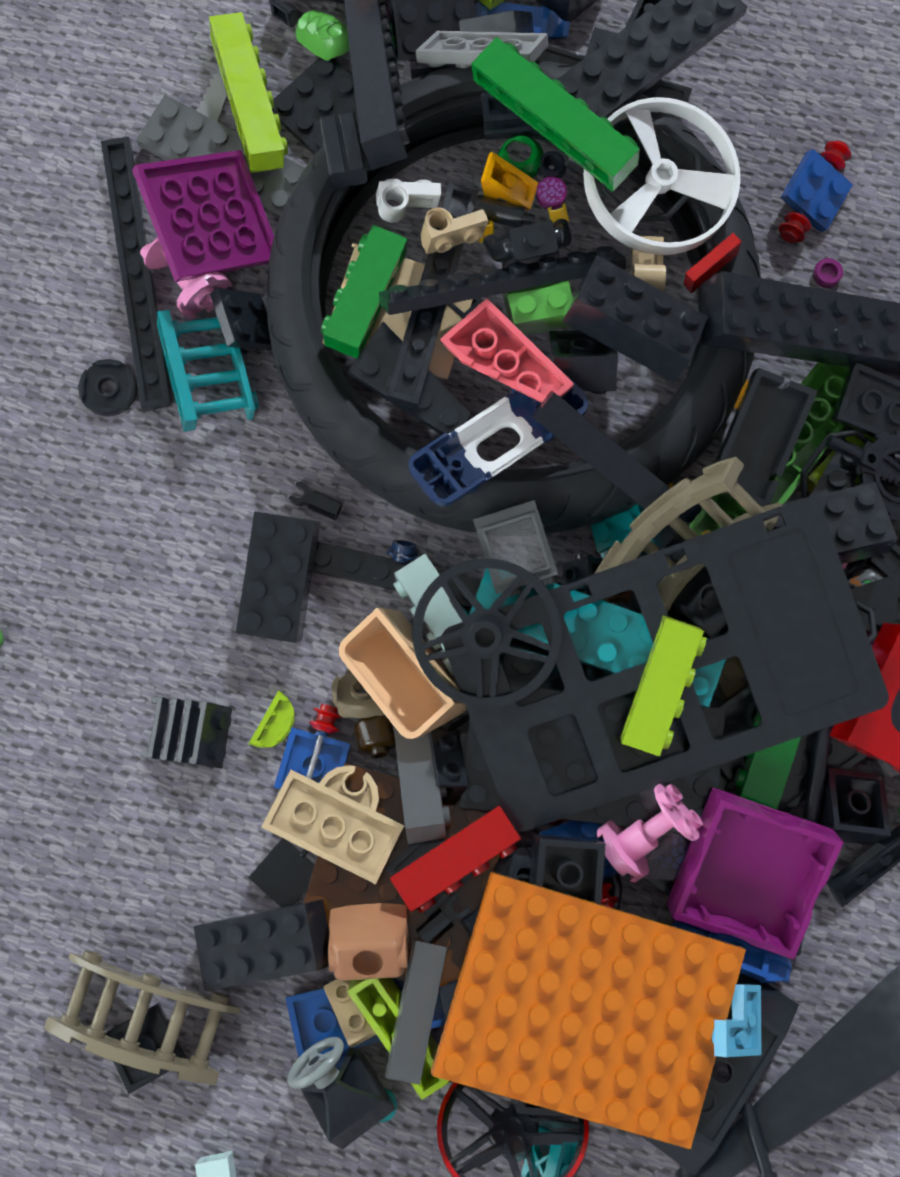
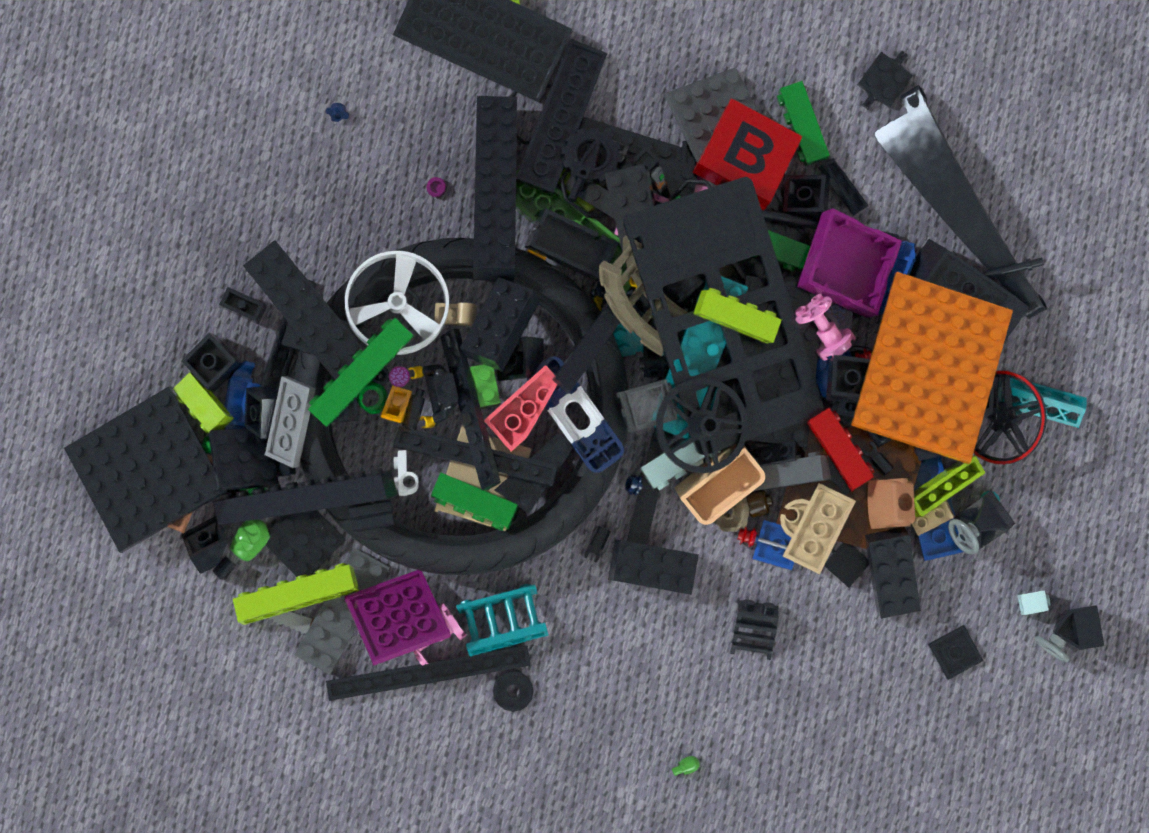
camera: 90 degrees left, 5 degrees up
(127, 1049) = (955, 656): dark tan fence -> none
(242, 319) = (469, 593): black plate -> none
(275, 724) = (749, 569): lime plate -> none
(416, 1012) = (933, 474): dark grey tile -> none
(454, 231) = (434, 432): tan plate -> none
(712, 263) = (457, 271): red tile -> none
(743, 1032) = (944, 274): medium azure plate -> none
(815, 191) = (377, 192): blue plate -> none

